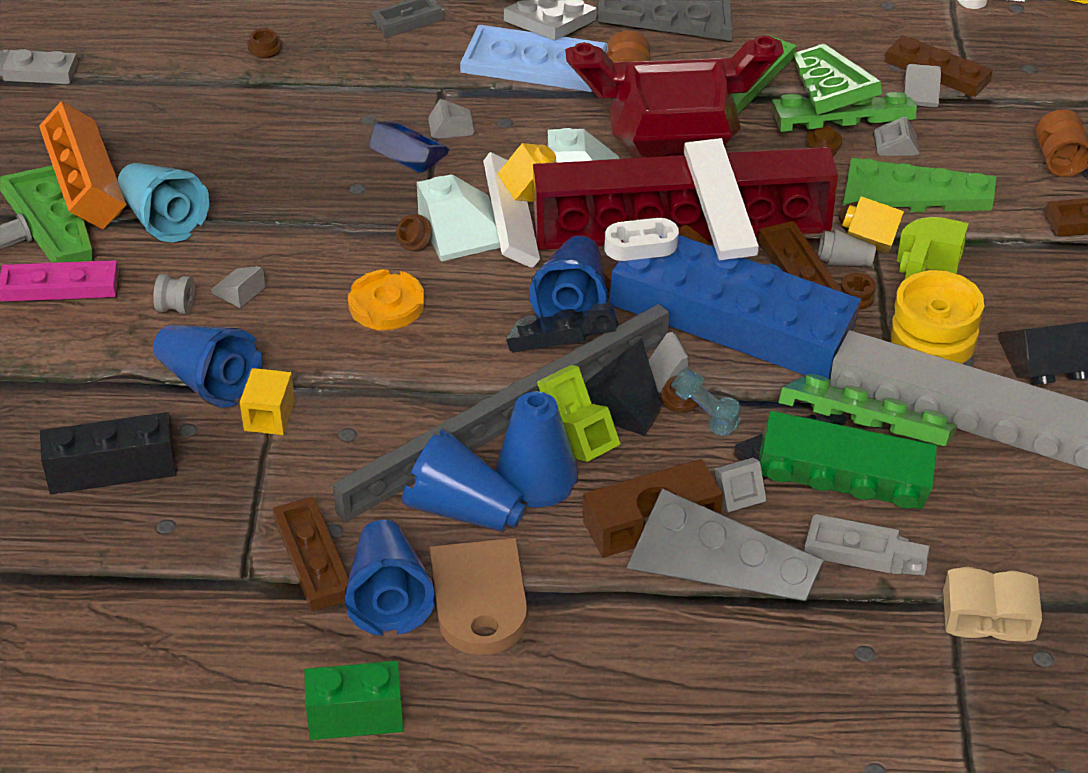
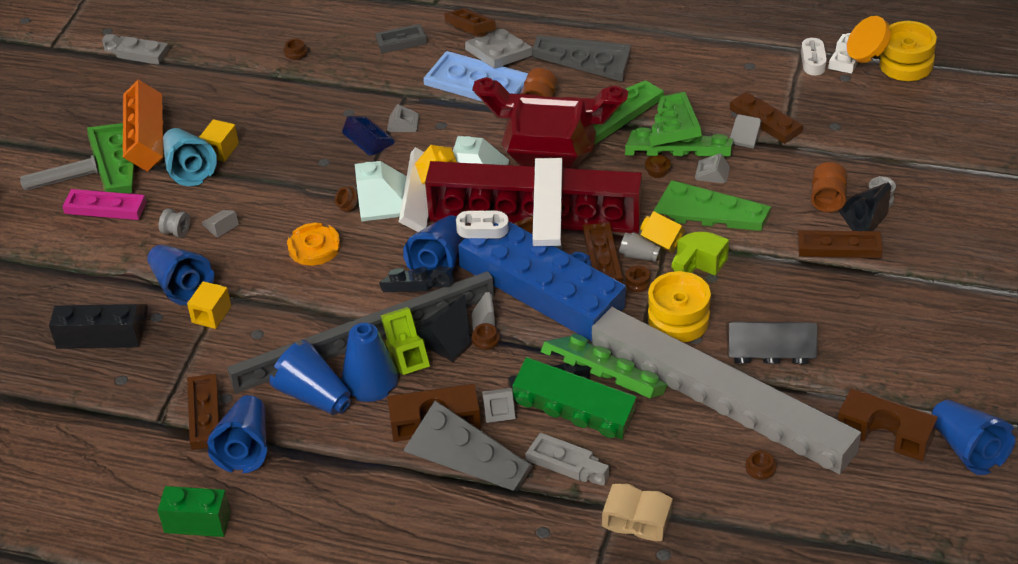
camera: 15 degrees right, 0 degrees up
(206, 165) = (222, 138): none -> yellow brick
(479, 588) = (302, 450): medium nougat tile -> none
(723, 411) = (508, 354): clear light blue bar -> none

